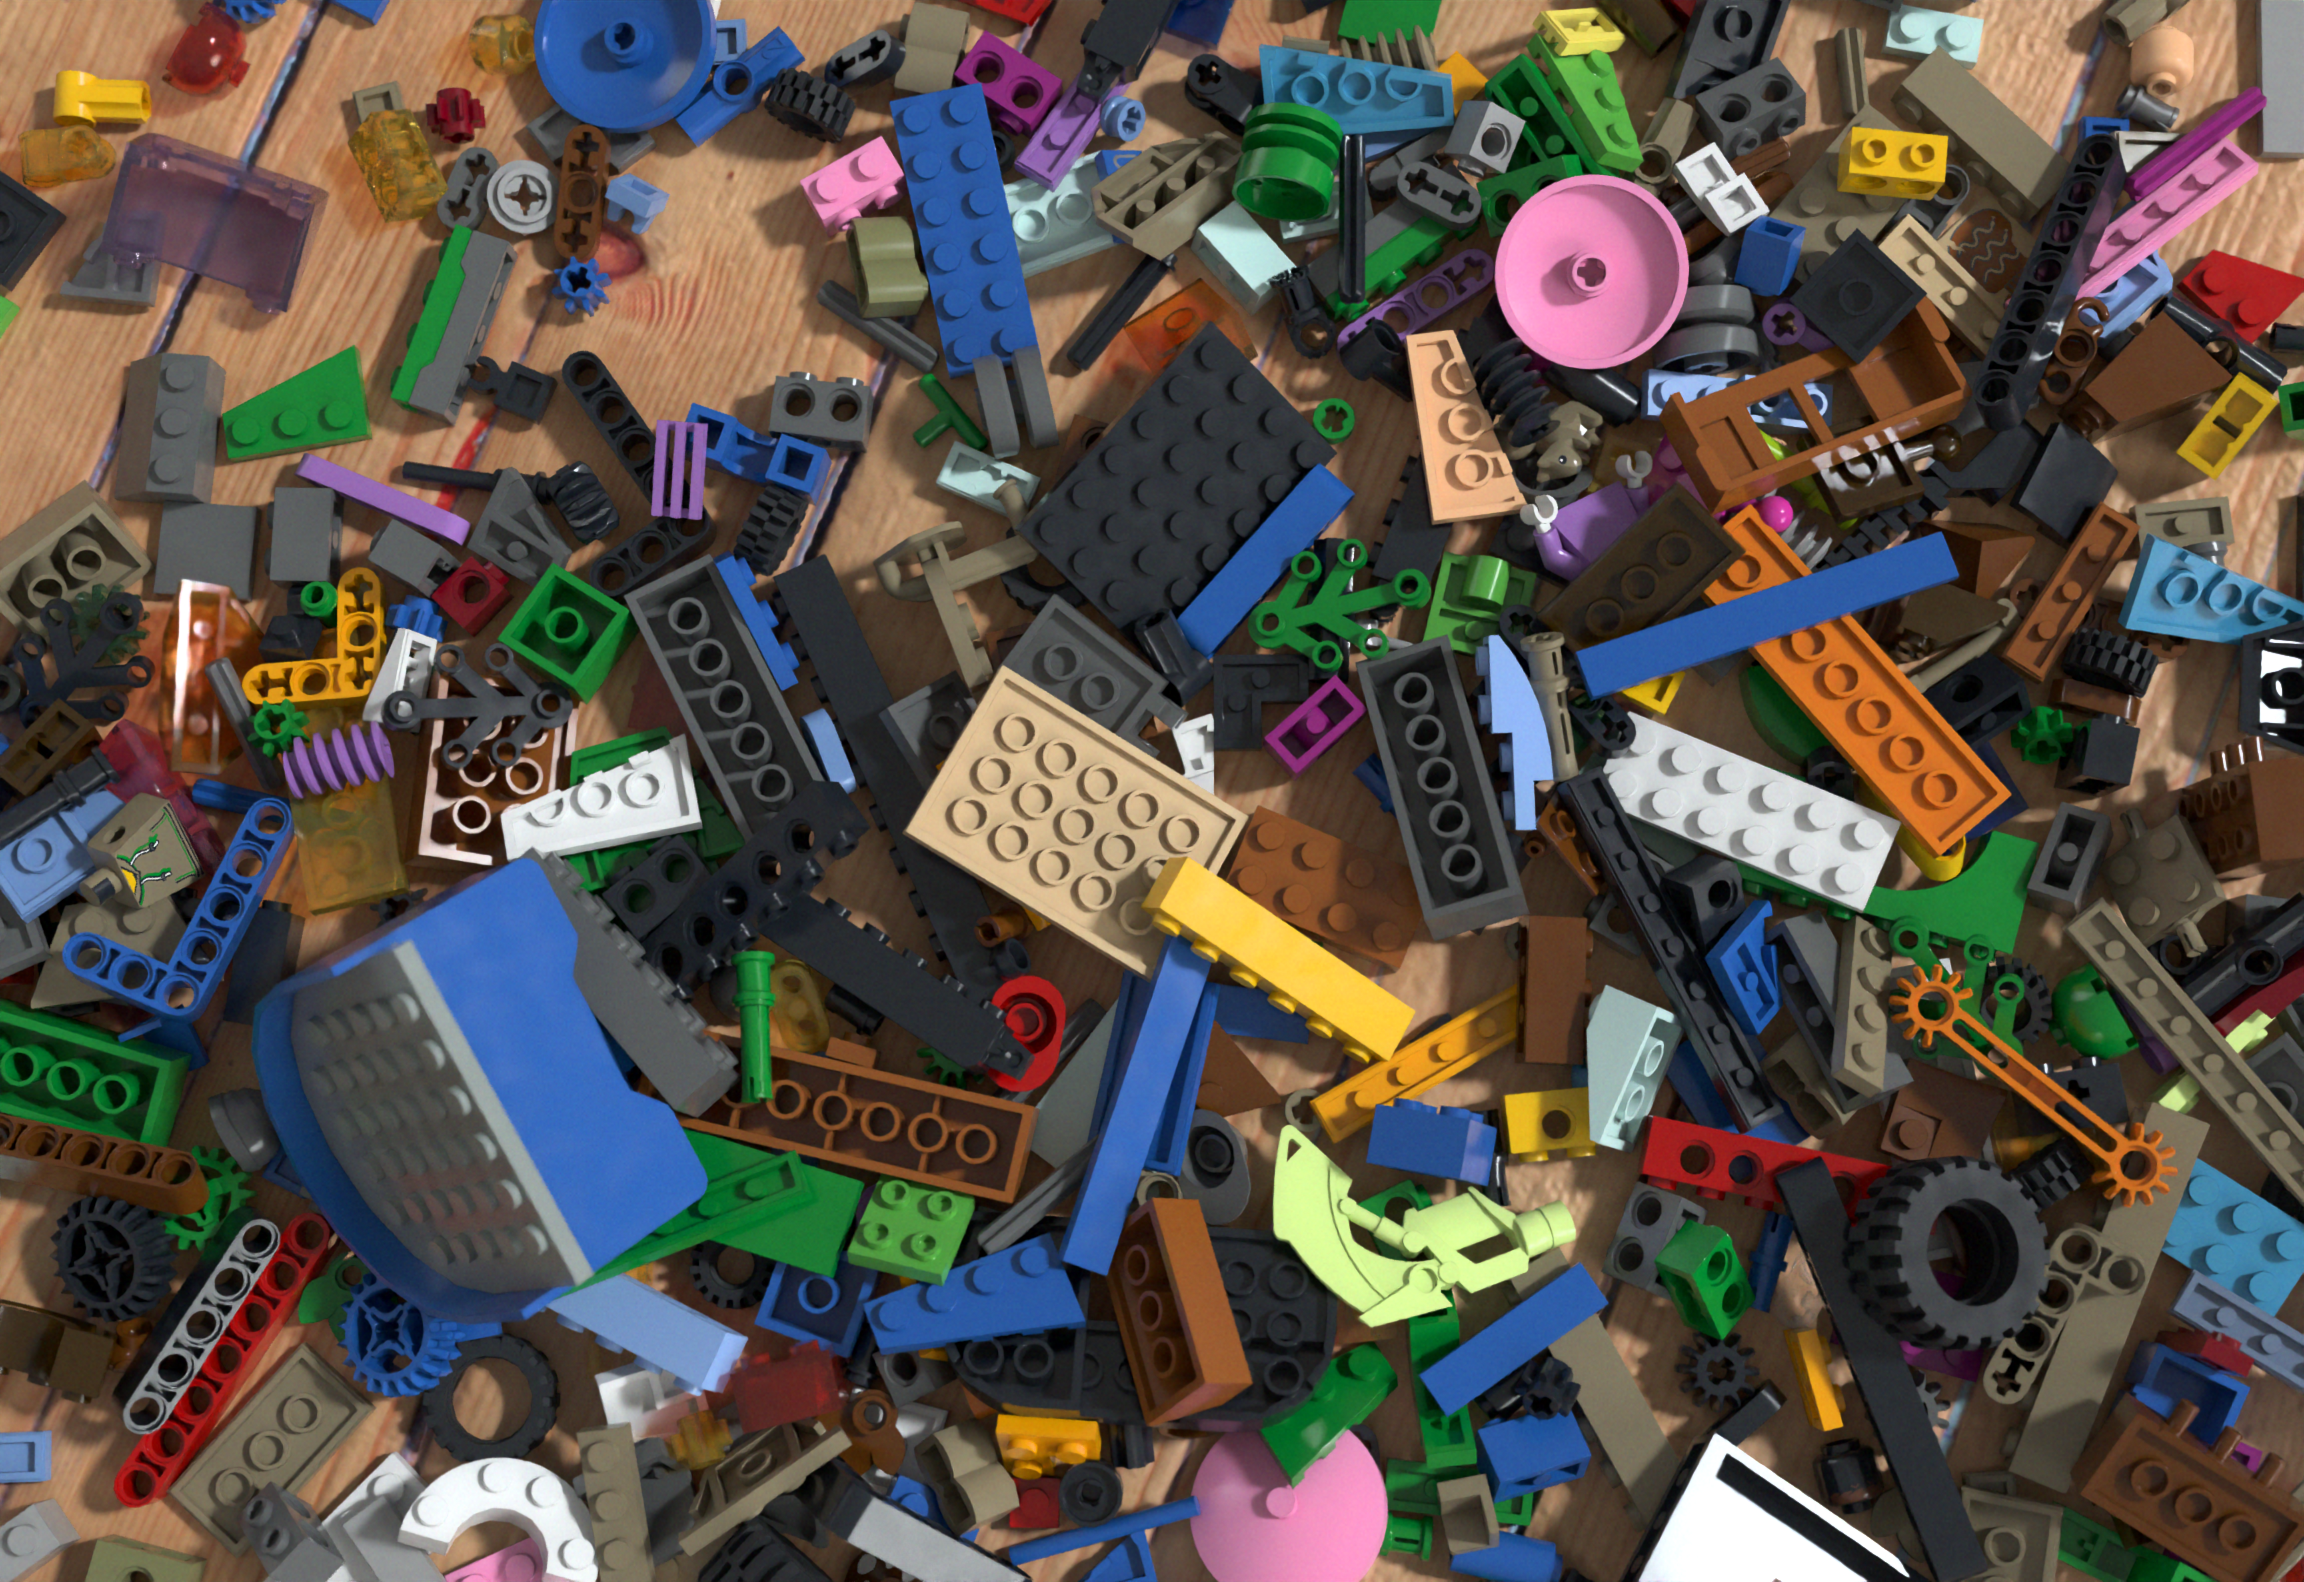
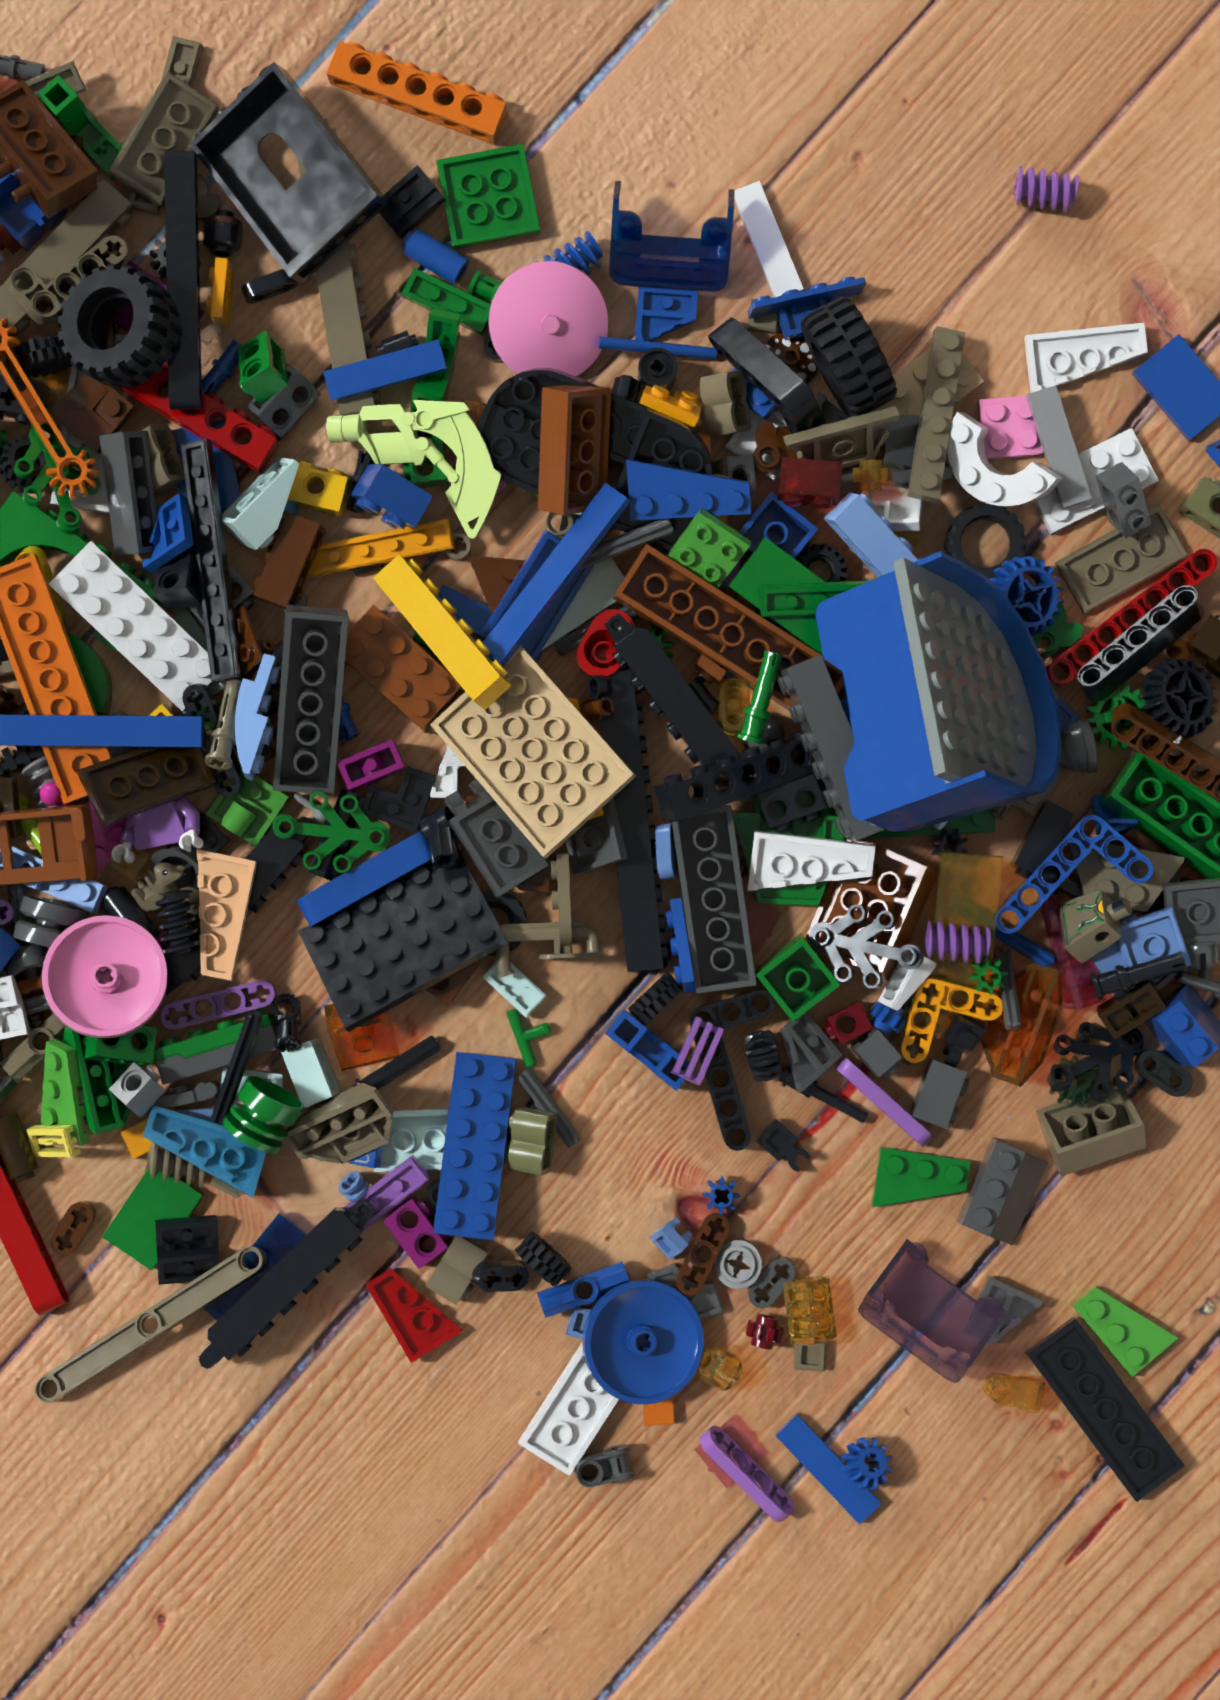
camera: 160 degrees left, 5 degrees up
(88, 100) = (989, 1422): yellow piece -> none
(208, 547) = (1000, 1109): dark grey tile -> none
(209, 55) = (905, 1424): clear red cylinder -> none
(320, 601) = (940, 1048): green pin -> none
(453, 324) = (807, 1197): dark grey piece -> none
(818, 424) = (604, 1056): dark grey brick -> none
(855, 186) = (532, 1199): bright pink brick -> none
(862, 1365) = (764, 487): black pin -> none
(1015, 401) = (481, 1025): dark grey wheel -> none
(1037, 1503) = (689, 377): red plate -> none
(1215, 1168) = (521, 527): dark grey piece -> none
(1227, 97) = (280, 1175): black piece -> none
(1345, 1398) = (488, 374): green wing -> none
(1347, 424) = (299, 958): green bush -> none
(1379, 355) = (250, 978): black piece -> none
(1443, 186) = (184, 1058): dark grey beam -> none
(1468, 1514) = (447, 282): dark tan panel -> none
(1530, 1454) = (398, 307): blue brick -> none
(1548, 1388) = (375, 335): black gear -> none
(1716, 1388) = (281, 308): black gear -> none
(1841, 783) = (80, 625): black beam -> none
(1862, 1007) = (112, 487): dark tan plate -> none

